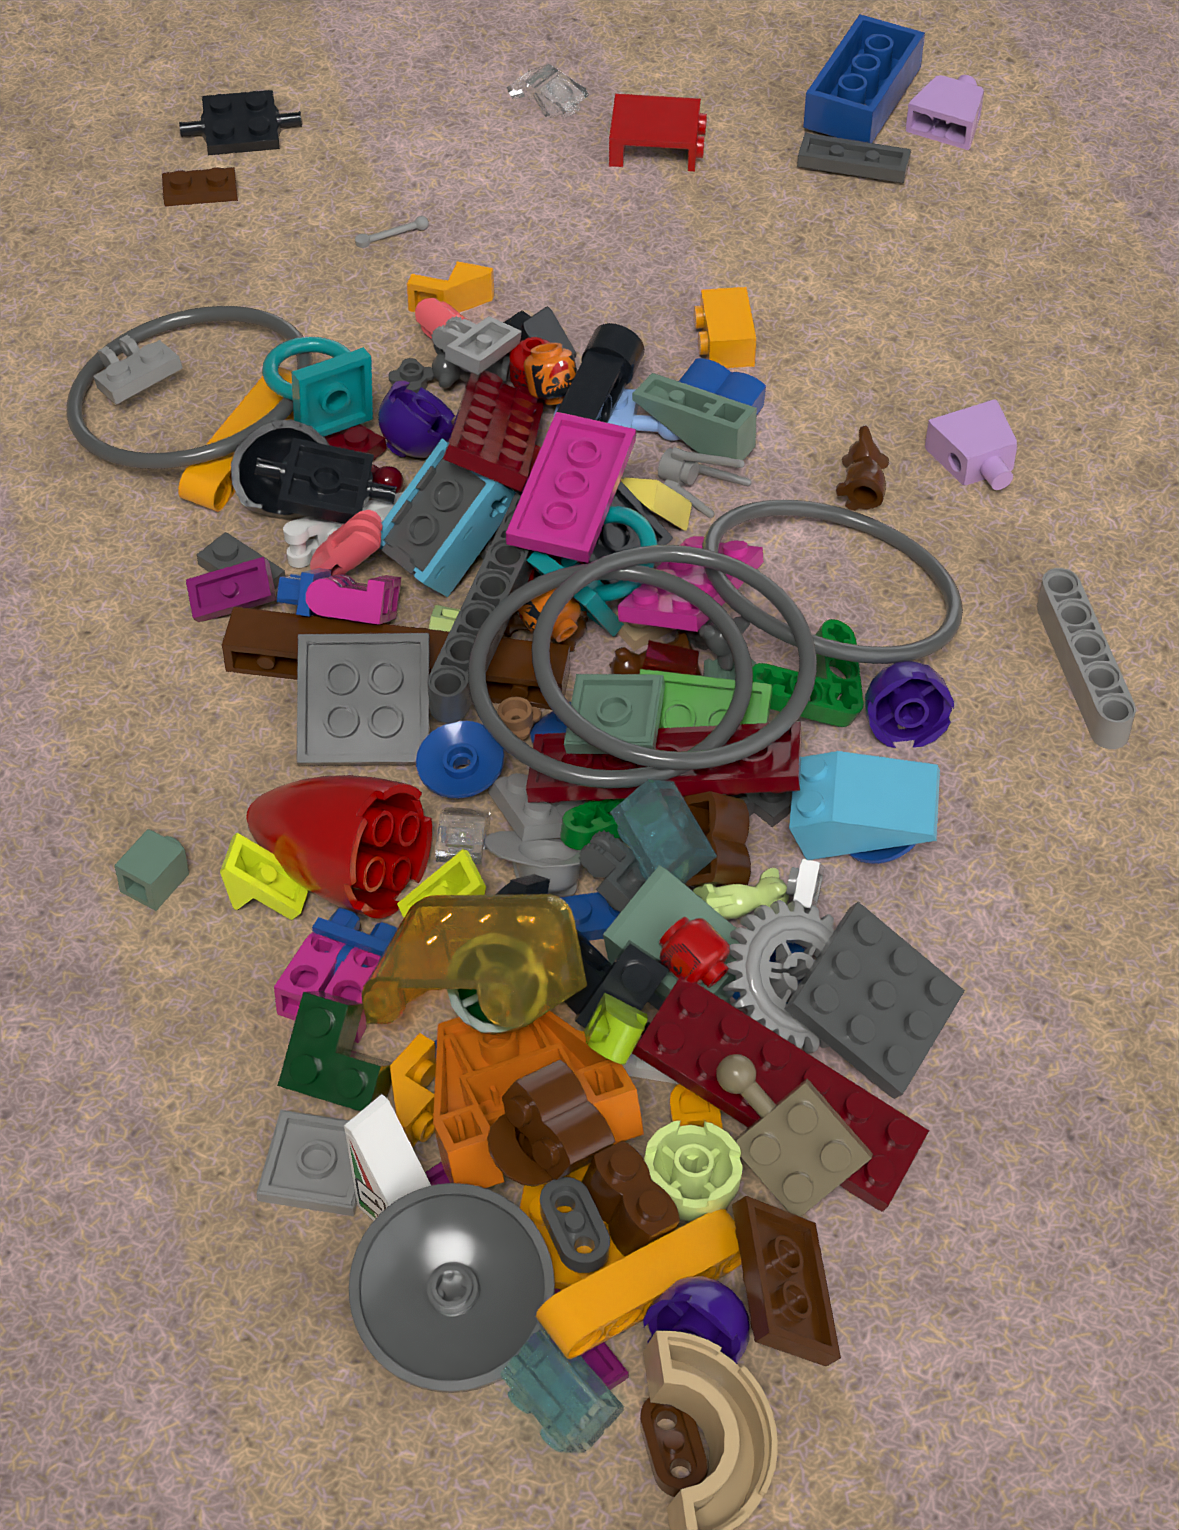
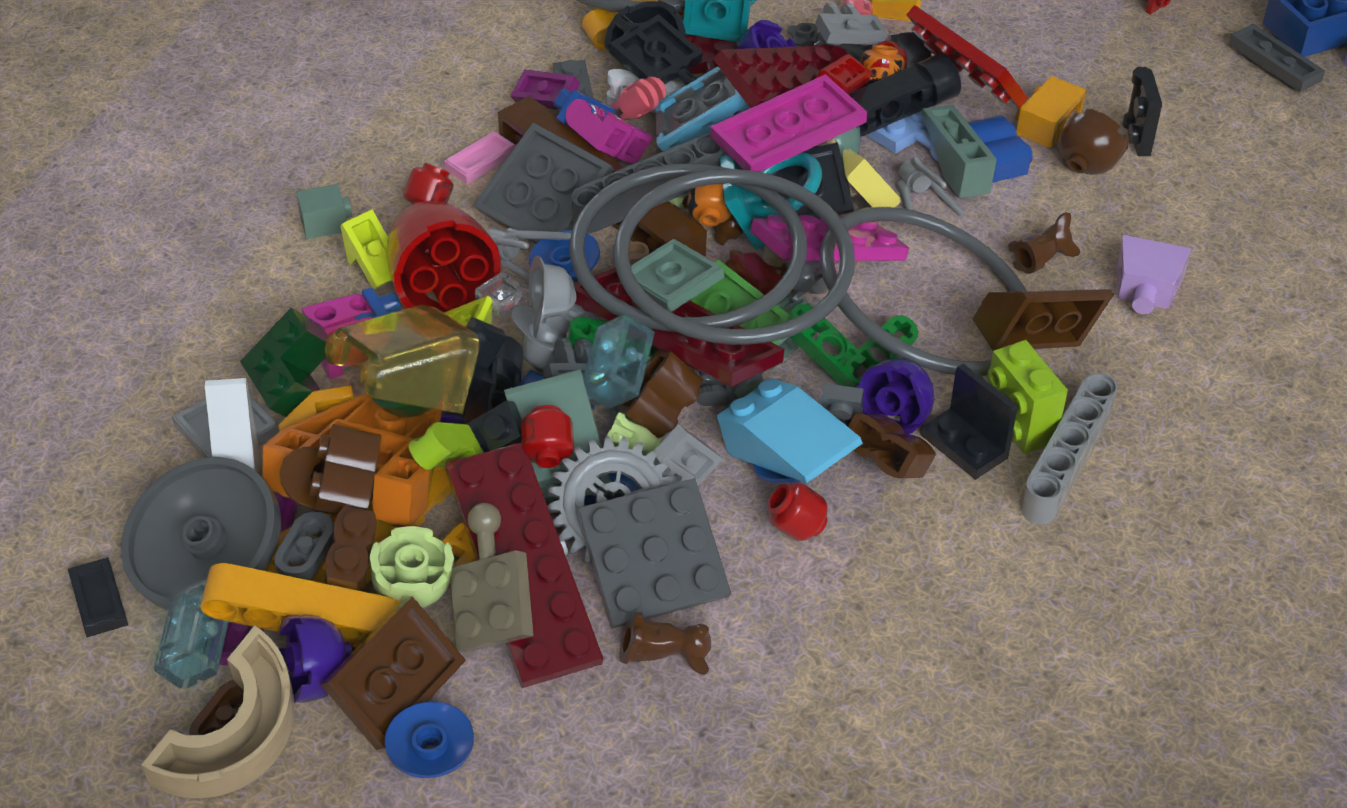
camera: 40 degrees right, 5 degrees down
(237, 706) = (479, 157): none -> bright pink tile
(240, 774) = (428, 184): none -> red head
(382, 768) = (510, 244): none -> light grey plant
(402, 1427) = (97, 597): none -> black tile
(523, 811) = (550, 292): none -> light grey piece
(539, 399) = (847, 73): none -> red plate
(645, 316) = (981, 67): none -> red plate
(801, 341) = (1091, 142): none -> reddish brown cylinder
(828, 281) = (1143, 111): none -> black plate
(879, 1299) = (429, 725): none -> blue dish
(889, 740) = (842, 401): none -> dark grey plate
(944, 872) = (797, 511): none -> red head
(948, 544) = (1040, 317): none -> reddish brown slope
(956, 1078) = (656, 640): none -> reddish brown animal
(962, 756) = (889, 446): none -> reddish brown brick
(996, 686) = (976, 427): none -> black bracket
(1015, 633) = (1033, 388): none -> lime brick

